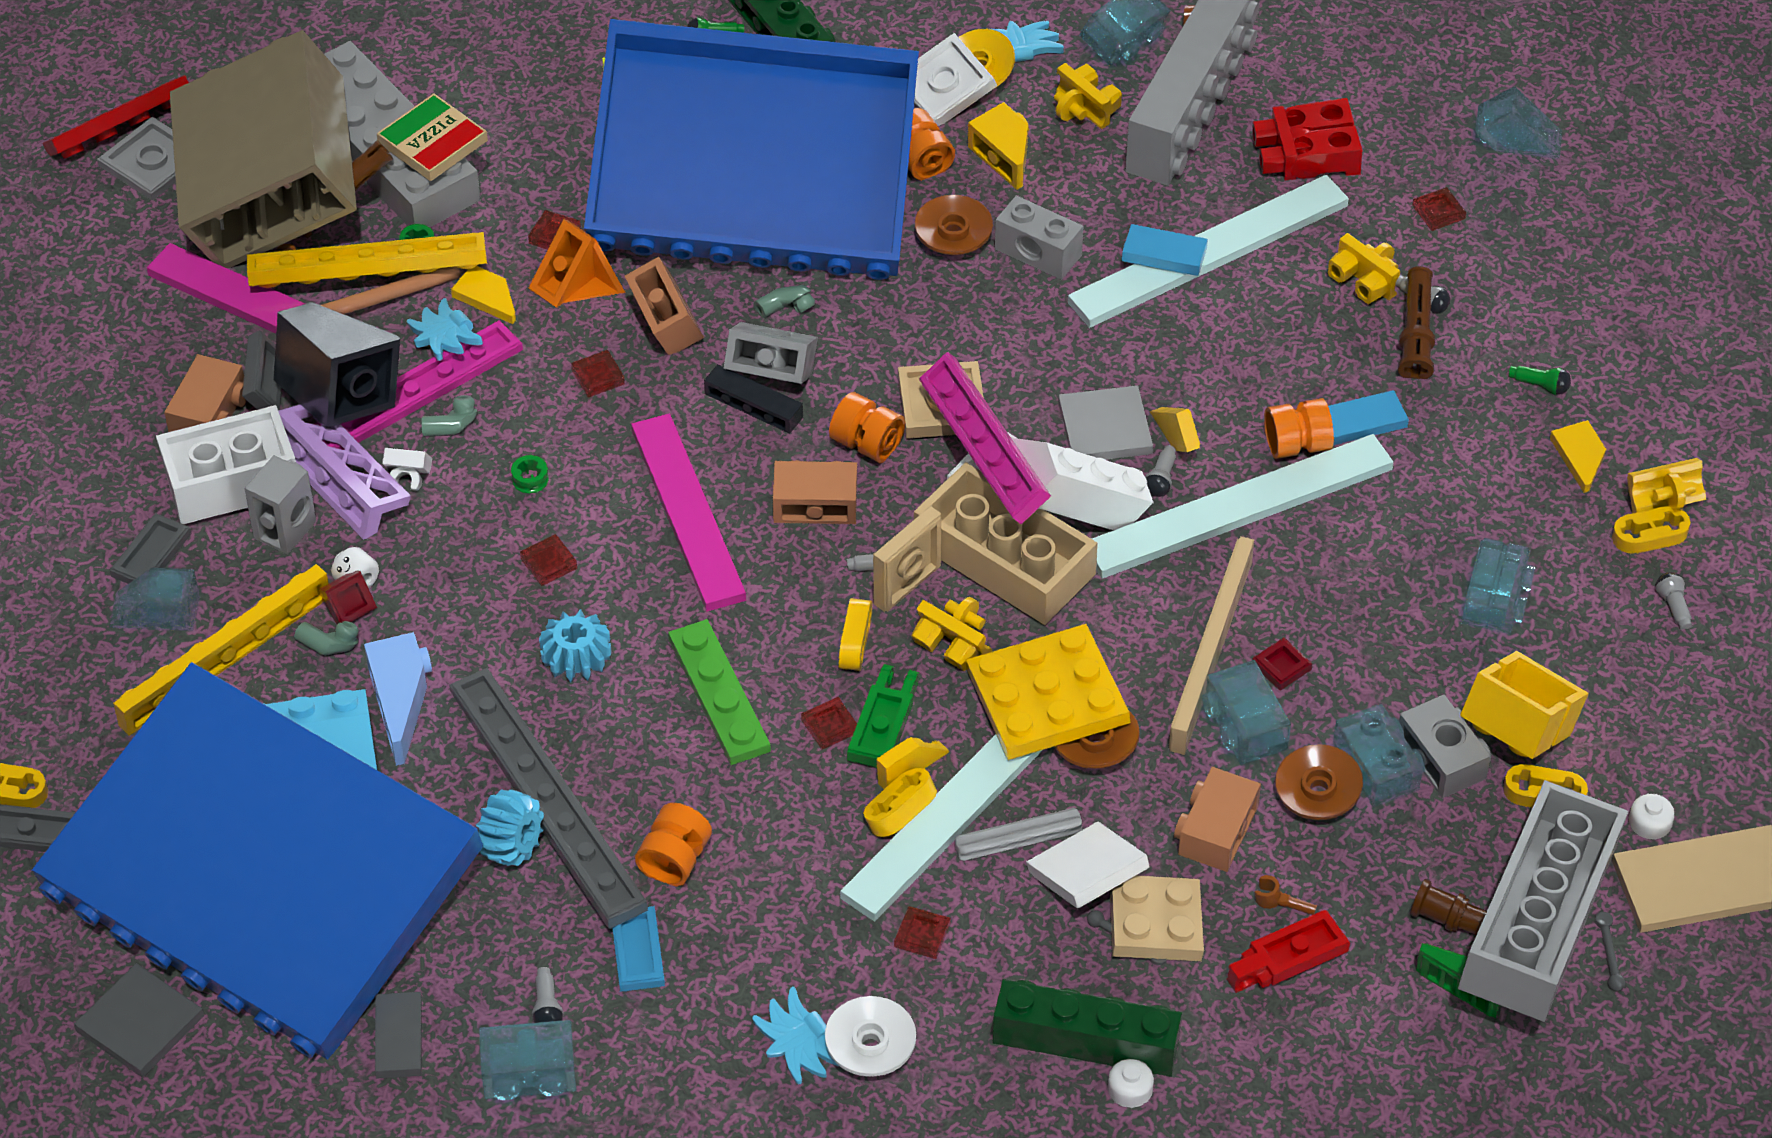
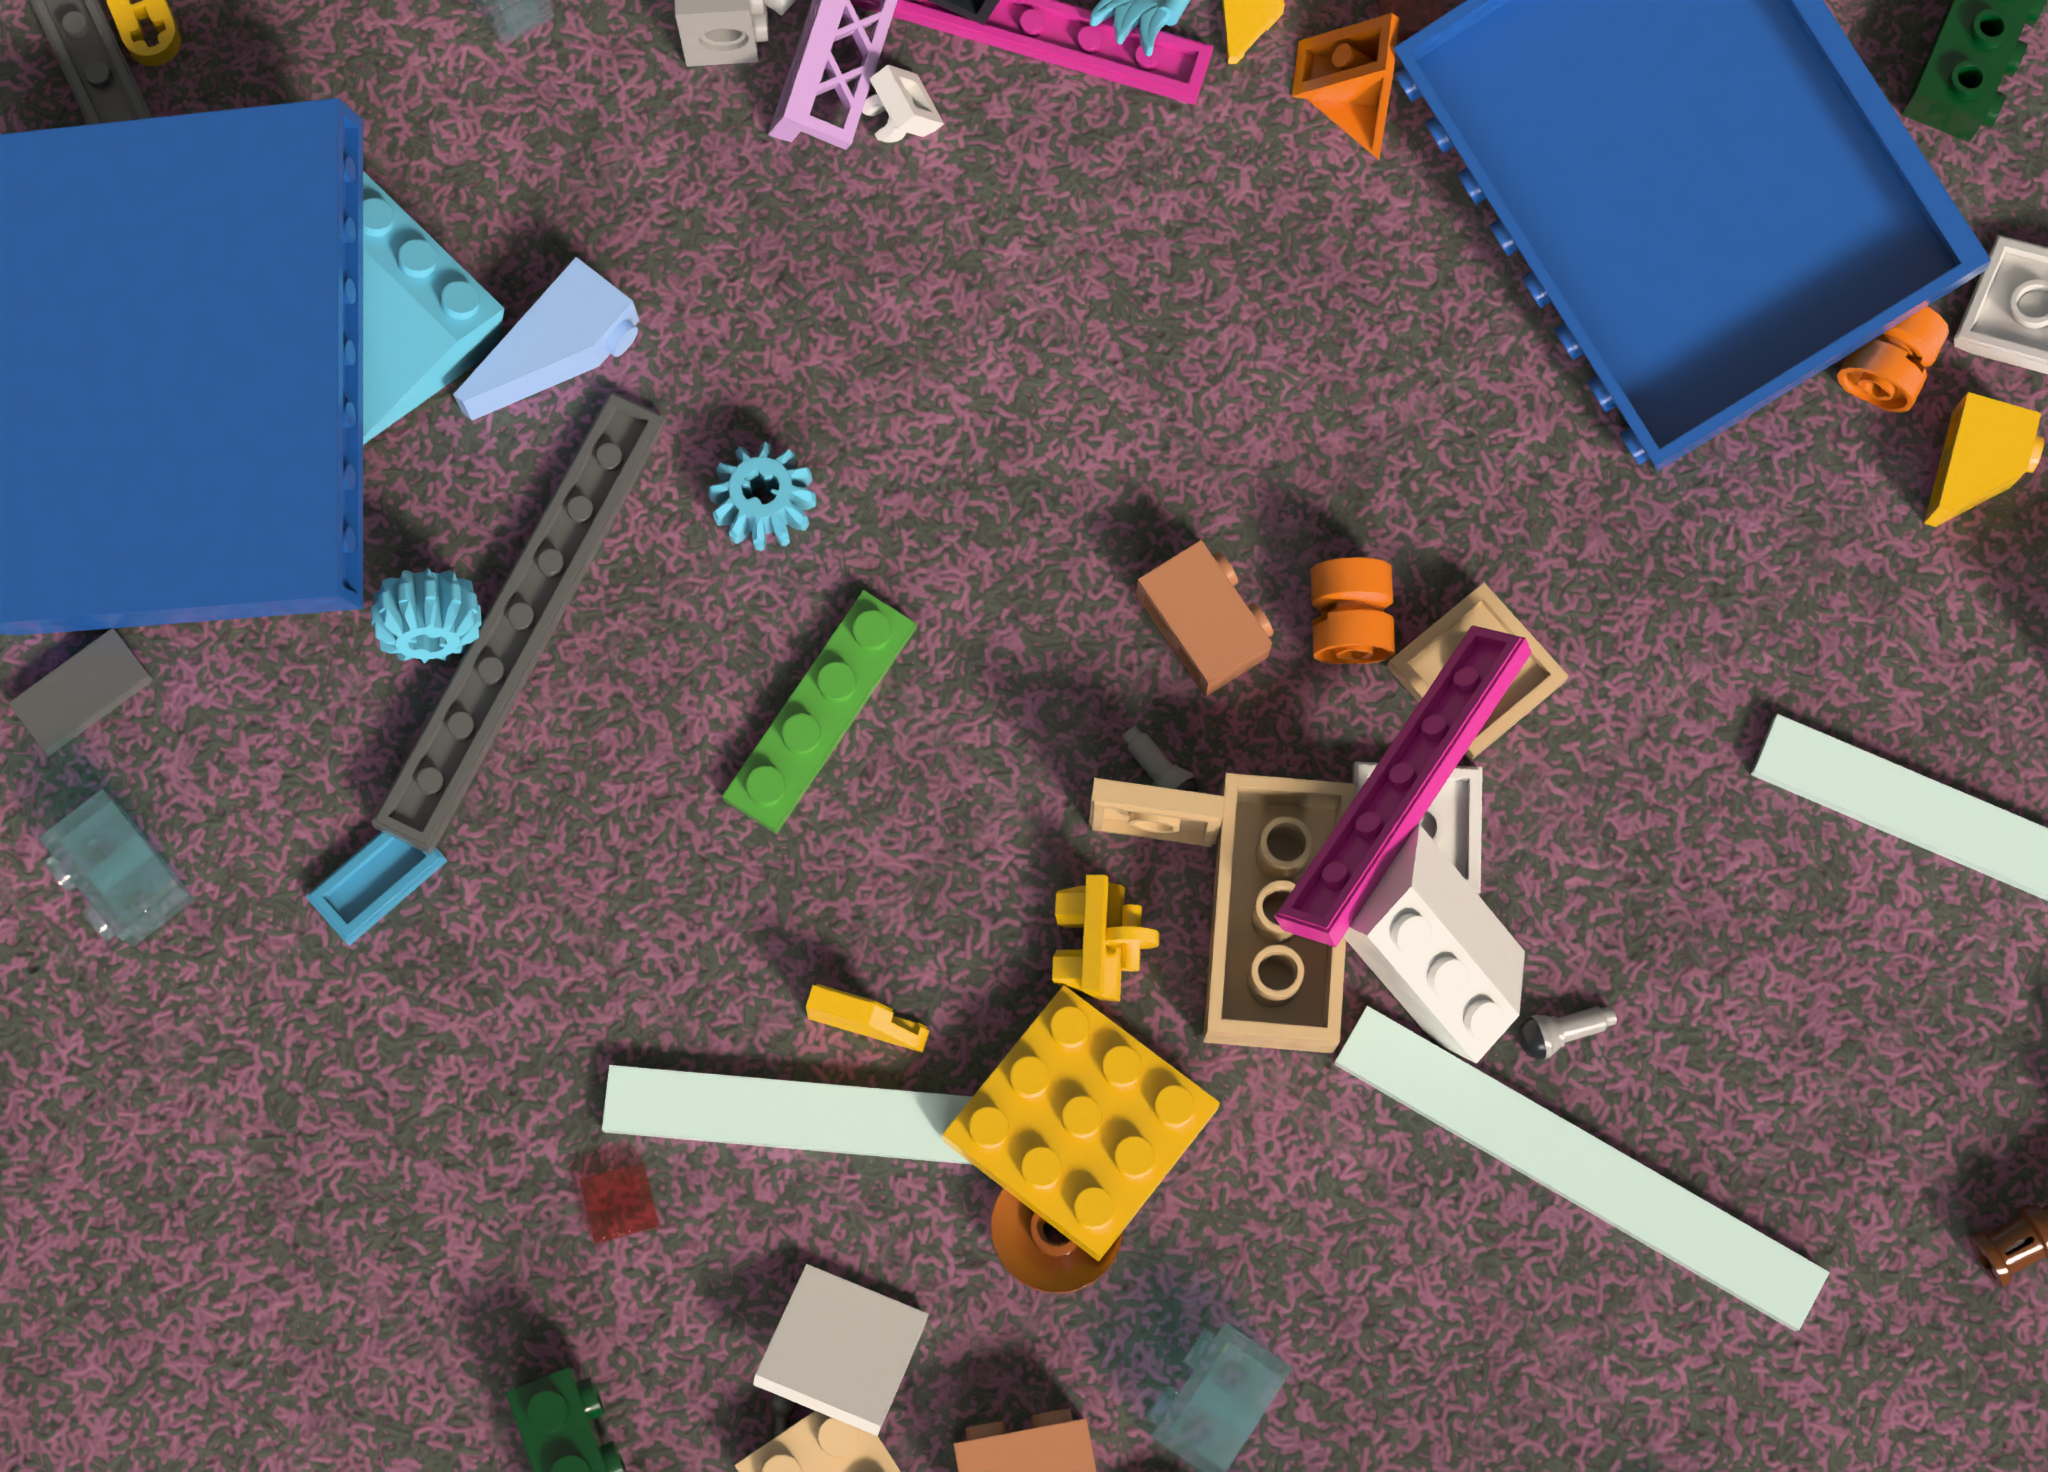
camera: 55 degrees right, 25 degrees up
(227, 645) = (462, 97): yellow plate -> none
(328, 643) = (582, 209): sand green arm -> none
(348, 597) = (652, 185): dark red tile -> none
(353, 560) = (700, 161): white piece -> none
(454, 421) = (1018, 108): sand green arm -> none
(532, 484) = (980, 247): green bush -> none
(546, 1006) = (219, 836): light grey piece -> none
(548, 560) = (882, 370): clear red tile -> none
(597, 373) = (1217, 221): clear red tile -> none
(664, 306) = (1364, 228): nougat brick -> none
(673, 844) = (535, 822): orange wheel -> none
(688, 512) = (1074, 482): dark pink tile -> none
(753, 398) = (1309, 437): black piece -> none
(770, 352) = (1386, 410): light grey brick -> none
(781, 297) = (1510, 359): sand green arm -> none
(796, 1036) = (372, 1156): medium azure piece -> none
(829, 723) = (863, 878): clear red tile -> none
(855, 634) = (1013, 819): yellow beam -> none
(870, 1019) = (379, 1238): white dish -> none
(882, 717) = (908, 941): green hinge -> none
(900, 802) = (790, 1049): yellow beam -> none
(953, 224) = (1804, 467): dark orange dish -> none
(1018, 834) = (846, 1225): light grey axle -> none
(1038, 237) = (1842, 613): light grey brick -> none
(1106, 423) = (1592, 904): light grey tile -> none
(1164, 250) = (1945, 792): dark azure tile -> none
(1177, 427) = (1645, 1004): yellow tile -> none
(1211, 645) = (1308, 1282): tan tile -> none
(1282, 663) = (1350, 1389): dark red tile -> none
(1292, 429) = (1757, 1170): orange wheel -> none
(1367, 416) = (1853, 1238): dark azure tile -> none

